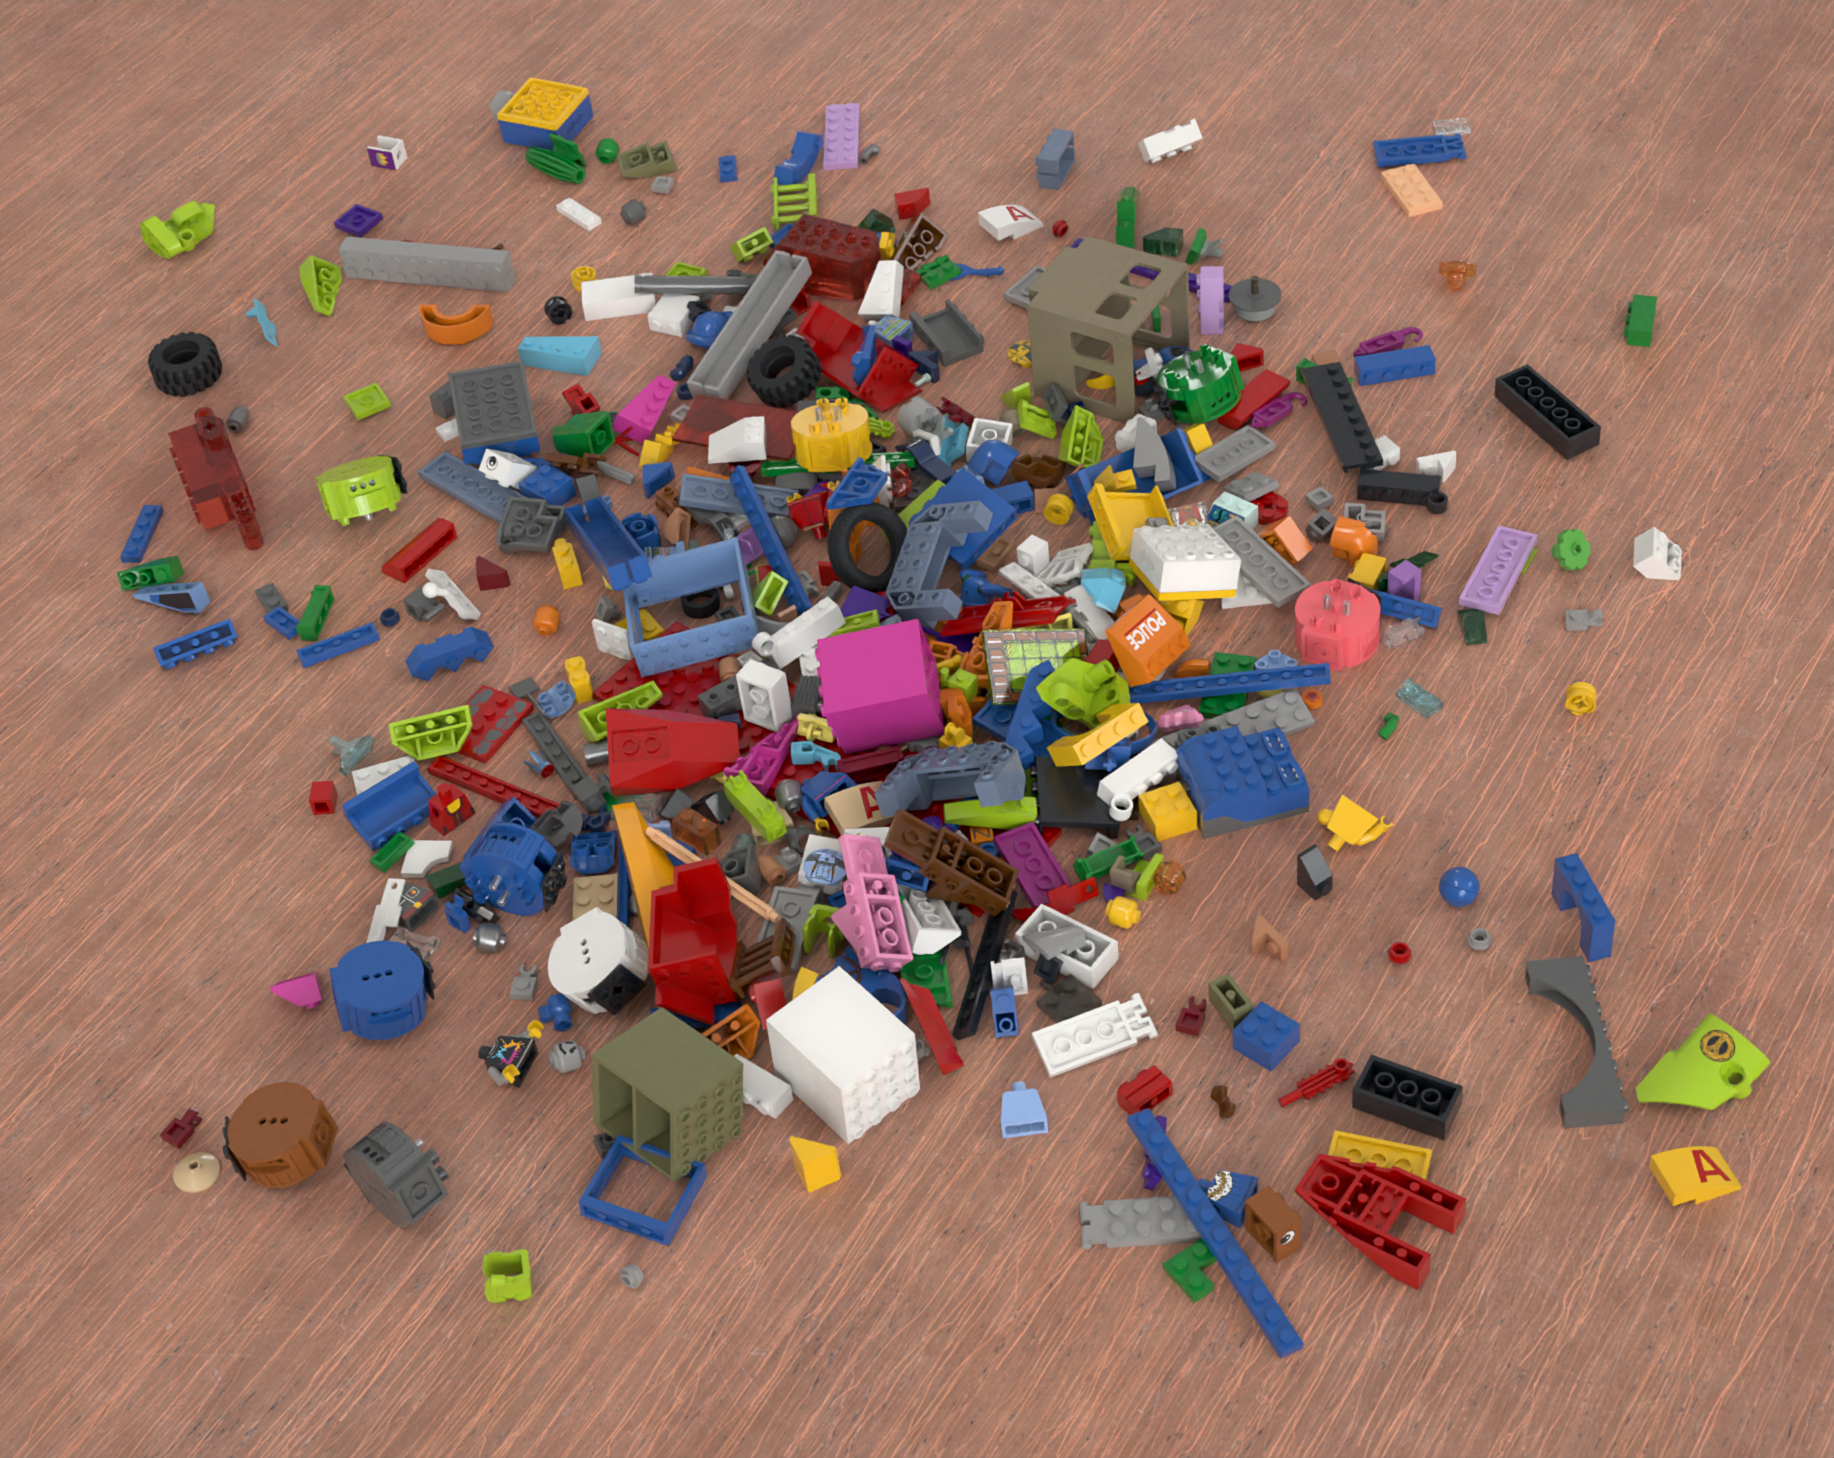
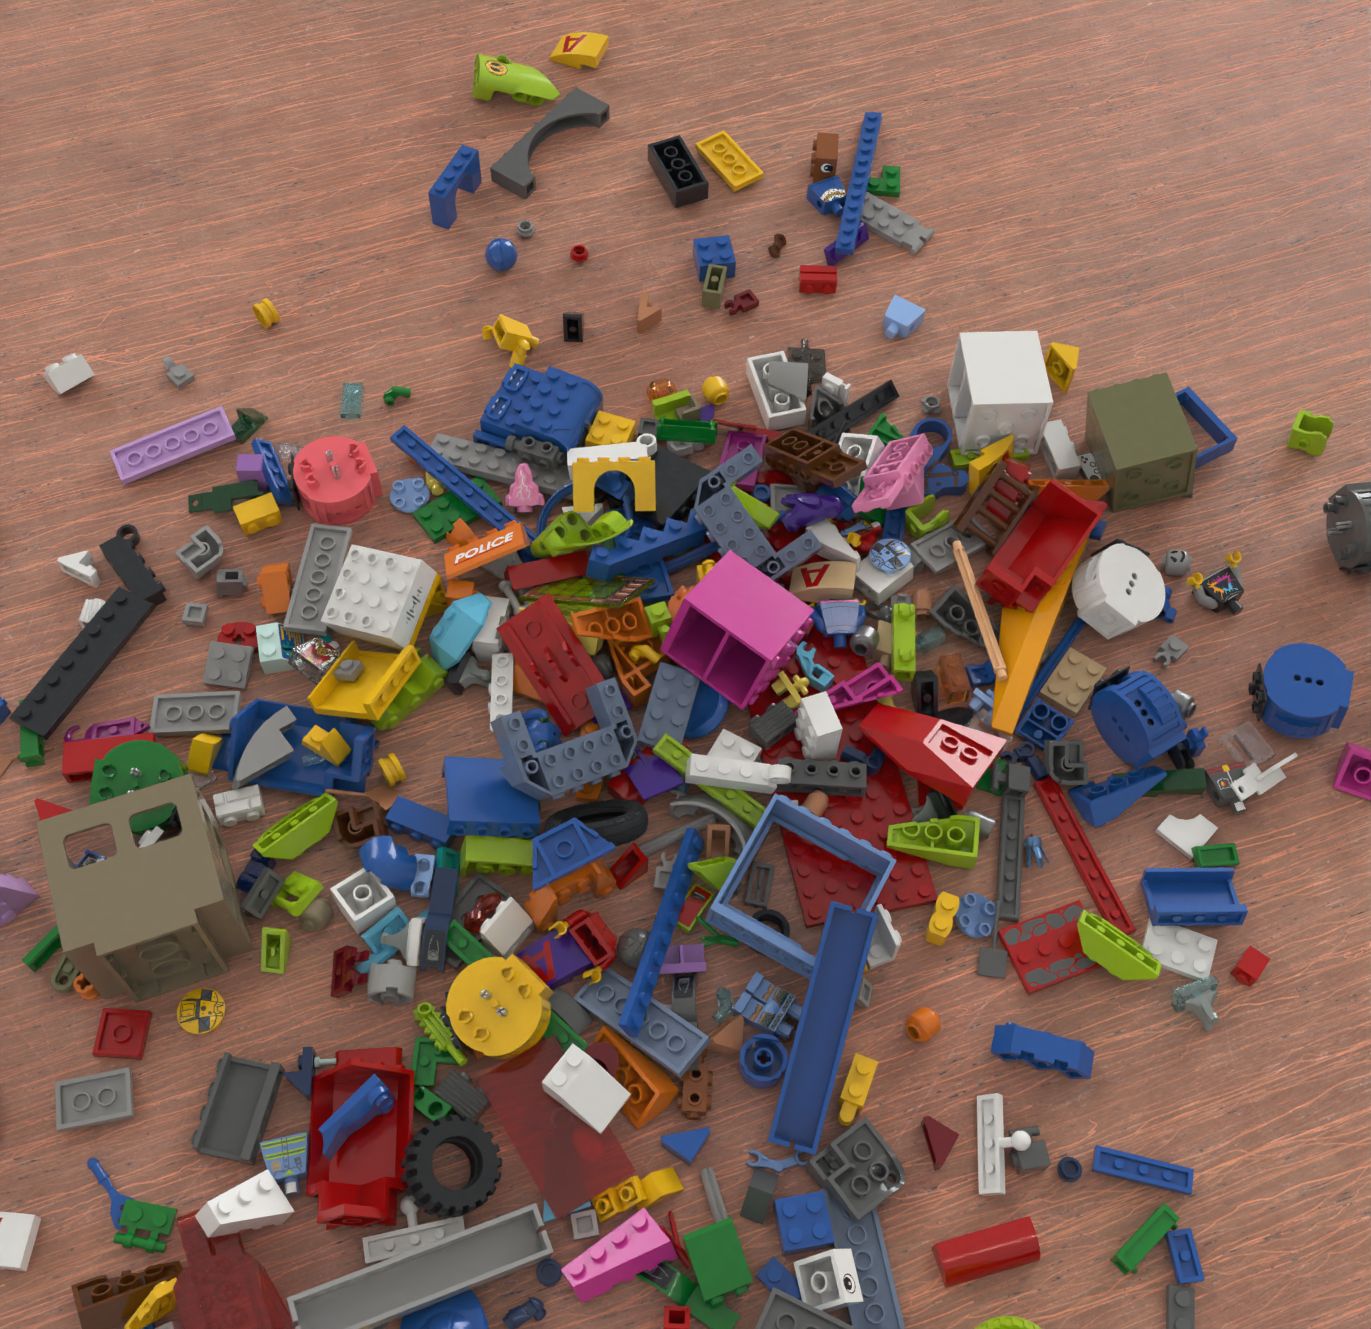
camera: 150 degrees left, 15 degrees up
(195, 643) = (1298, 1293): blue brick -> none
(449, 808) = (1145, 854): red torso -> none
(568, 463) = (752, 1215): reddish brown plate -> none
(631, 1276) = (1224, 388): light grey plate -> none
(902, 345) = (296, 1122): dark purple plate -> none
(933, 1027) = (911, 400): red wedge -> none
(1004, 1011) = (858, 382): slope -> none
(1033, 555) = (472, 722): white brick -> none
(1066, 565) = (440, 703): white plate -> none
(1093, 1035) = (814, 328): white hinge -> none
(1319, 1082) = (693, 216): red piece -> none
(1352, 539) = (236, 540): orange brick -> none
(1366, 1202) = (765, 136): red wedge -> none
(1571, 549) = (112, 418): bright green plant -> none

